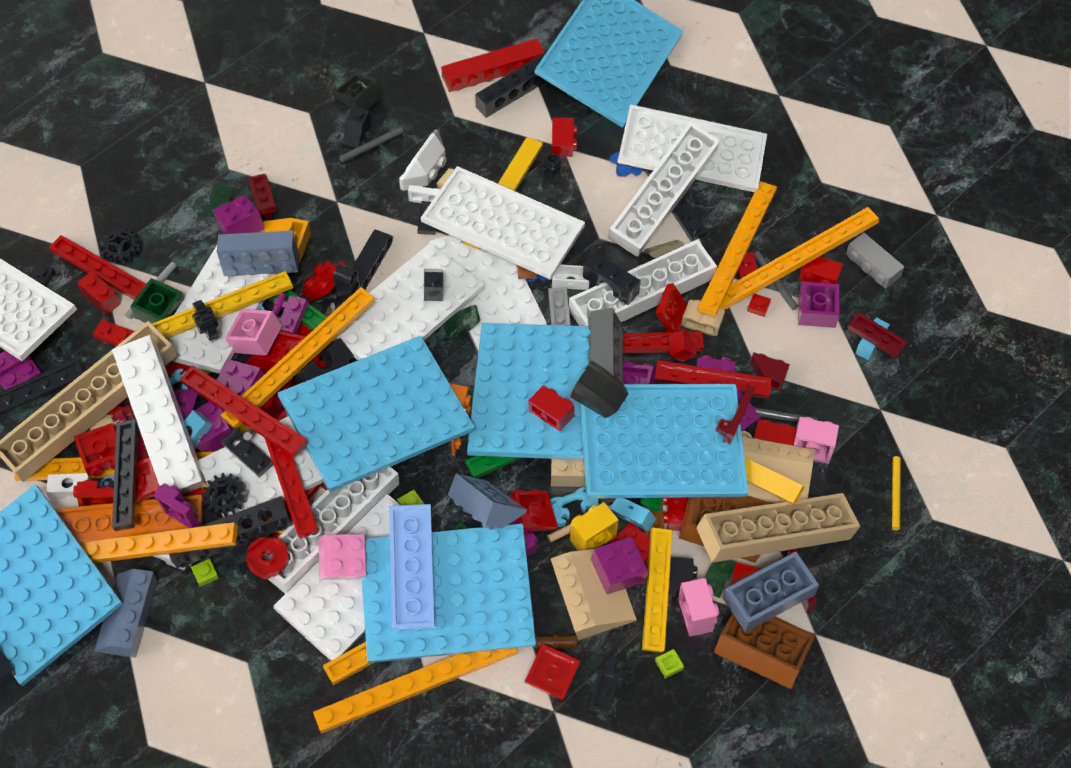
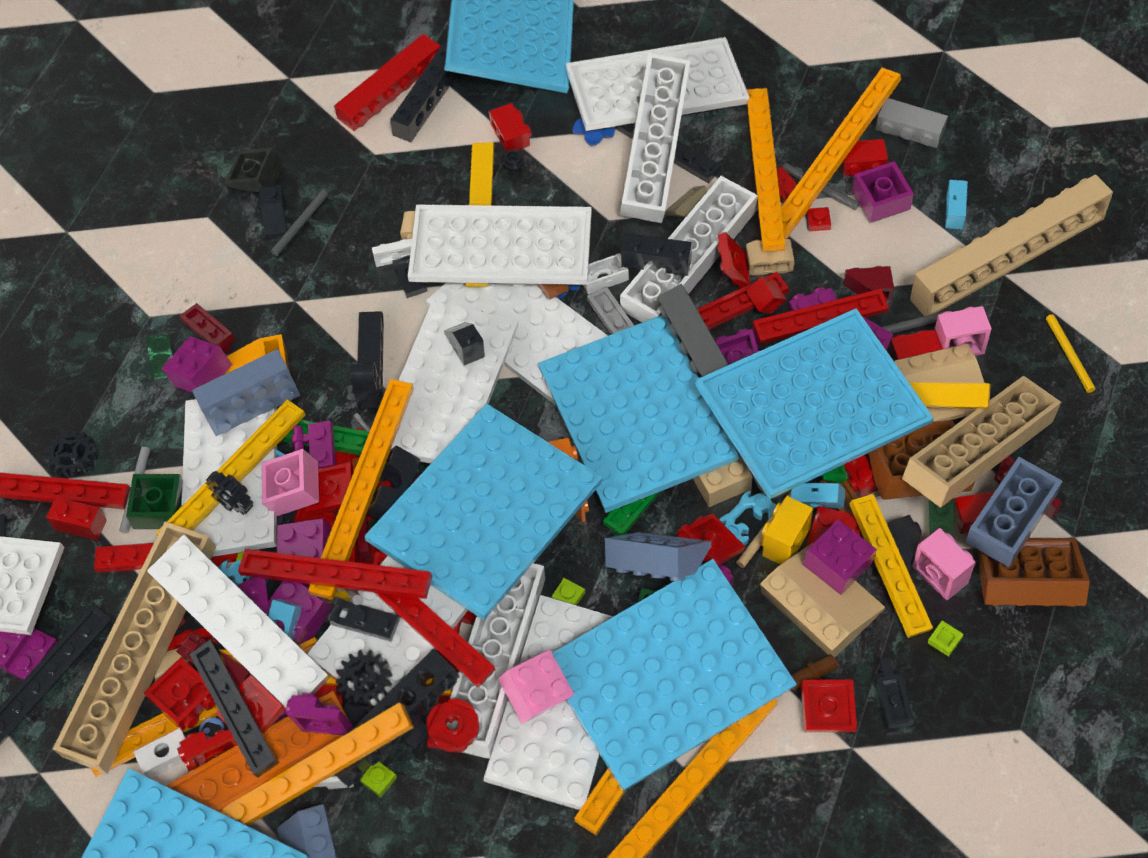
camera: 20 degrees left, 0 degrees up
(321, 280) = (332, 392): red plate -> none
(411, 567) = (621, 661): light blue plate -> none
(425, 163) = (375, 218): white wedge -> none
(462, 320) = (514, 369): clear green slope -> none
(551, 407) = (674, 419): red brick -> none
(599, 390) = (723, 377): pearl dark grey slope -> none
(729, 428) = (879, 356): dark red hinge -> none
(877, 335) = (962, 197): dark red hinge -> none
(895, 388) = (1010, 245): none -> tan brick

